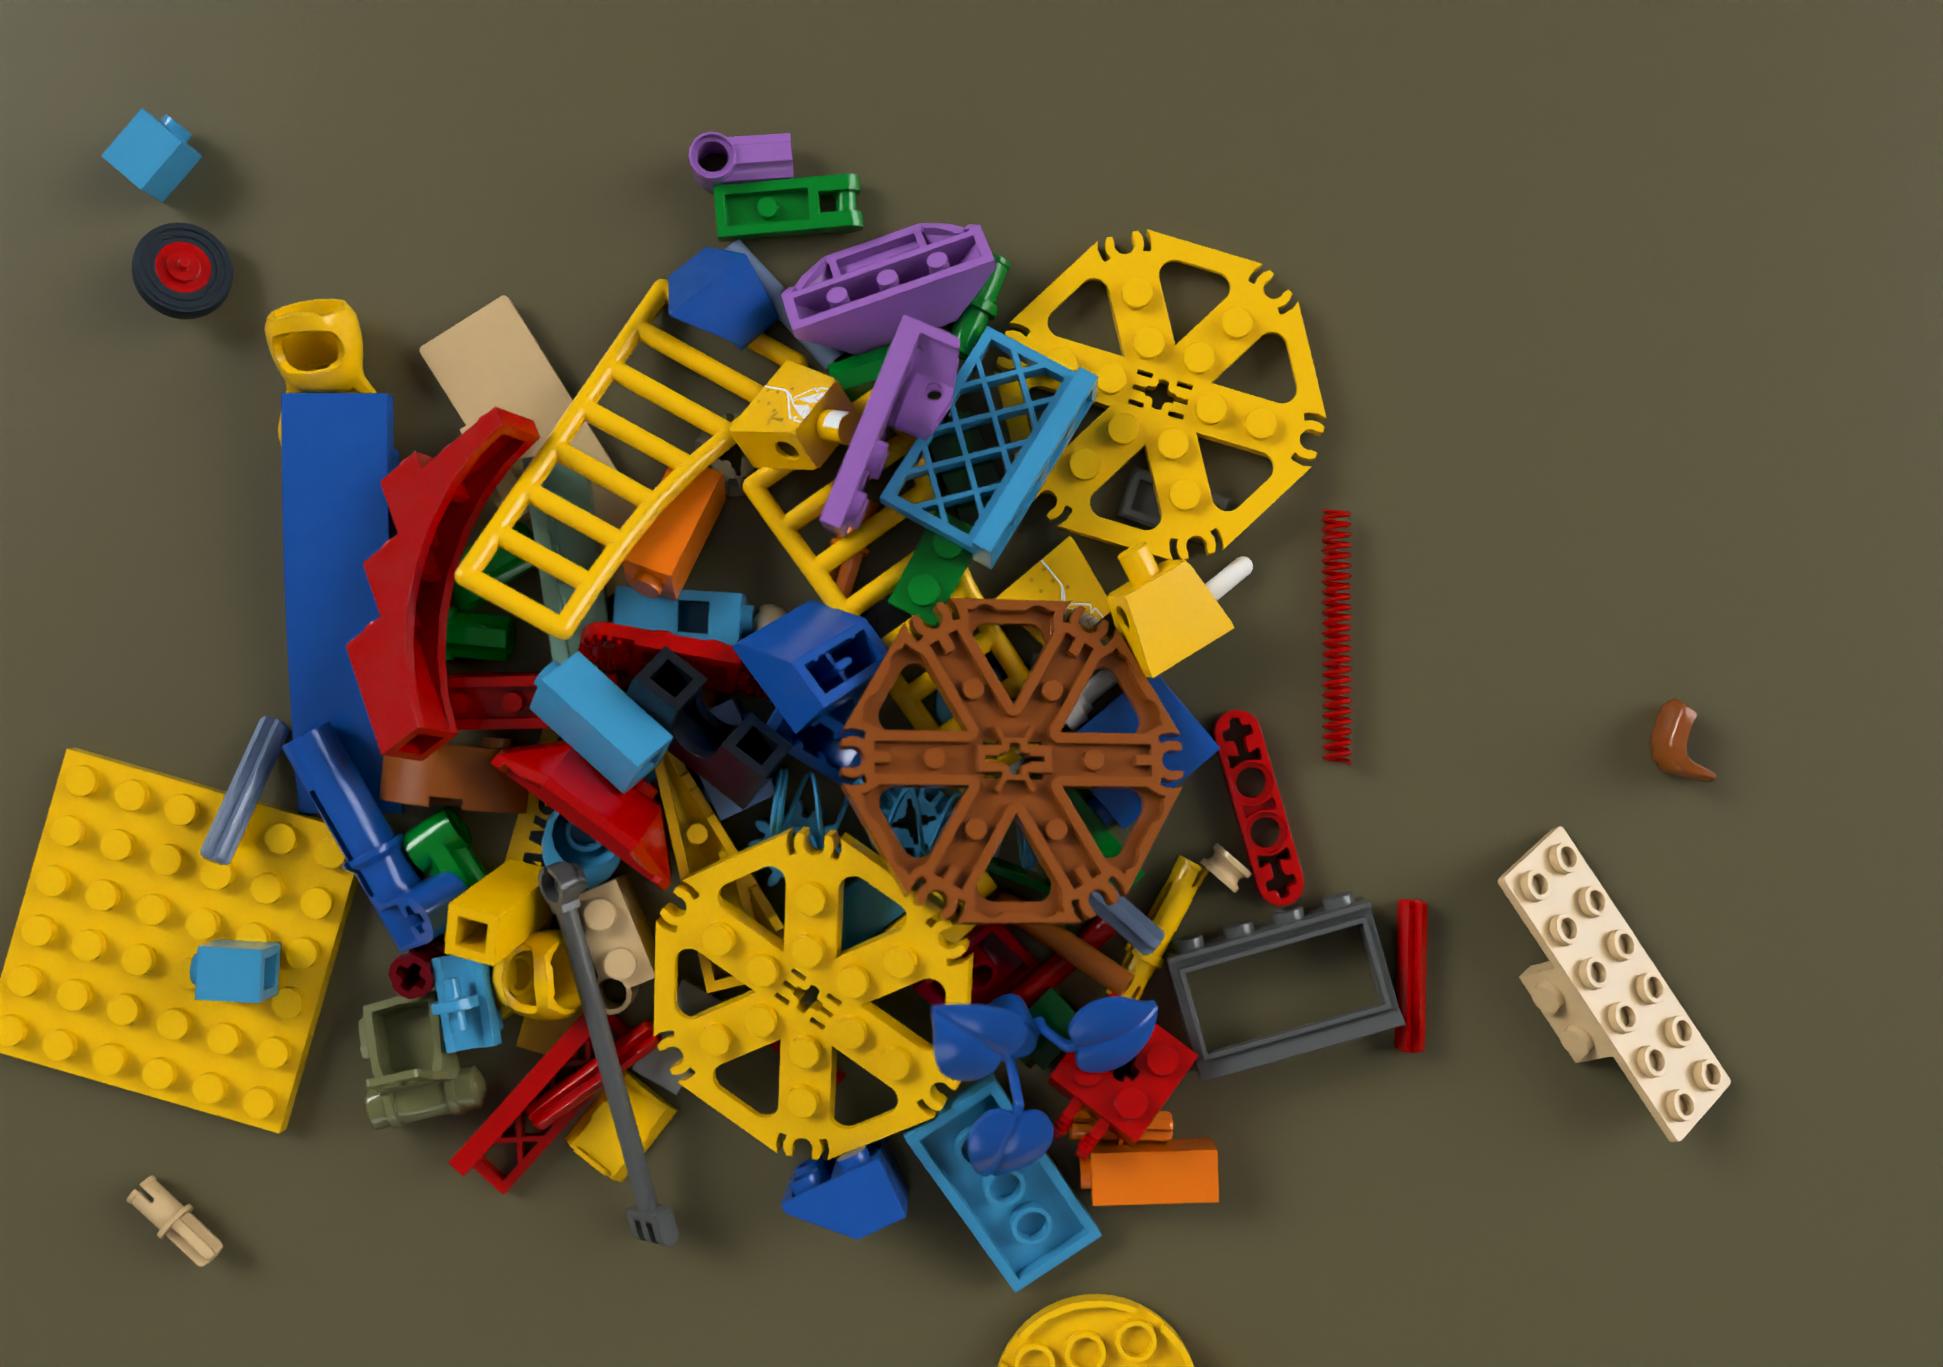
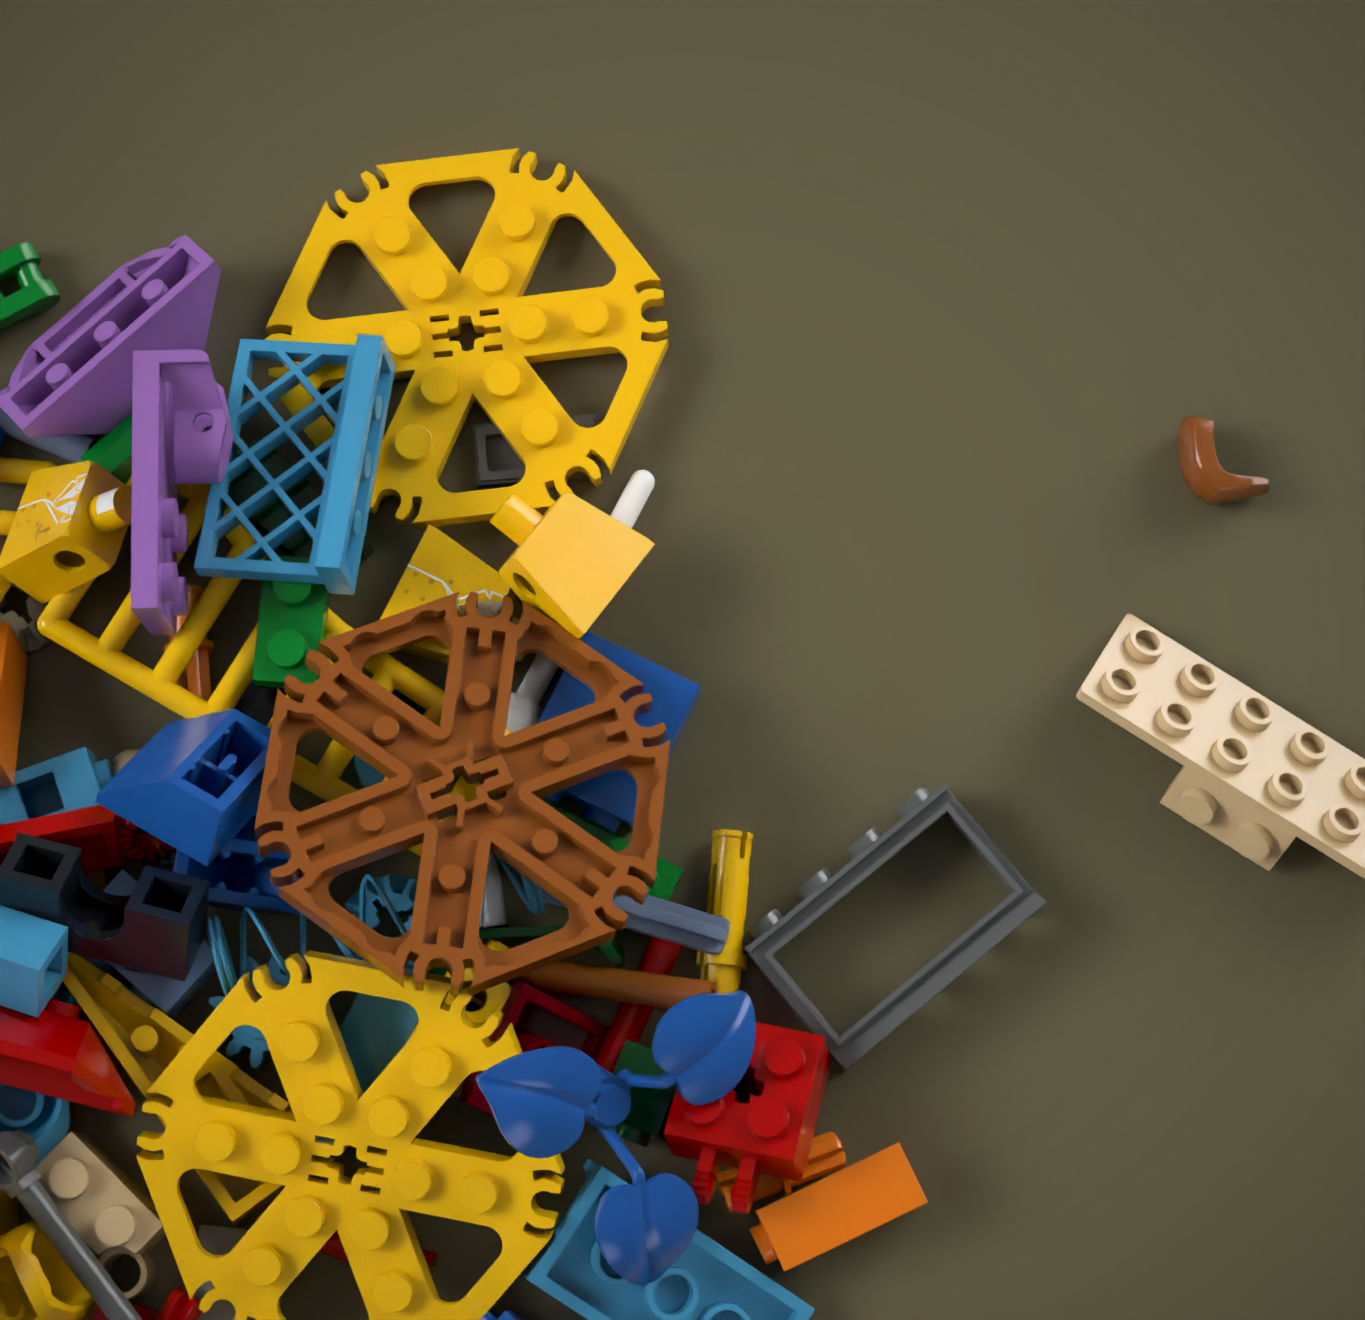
camera: 20 degrees left, 10 degrees down
(981, 309) = (226, 324): green pin -> none
(1225, 867) = (770, 821): tan bush -> none
(1265, 804) = (784, 733): red beam -> none
(1337, 638) = (774, 517): red piece -> none
(1411, 973) = (1036, 852): red axle -> none

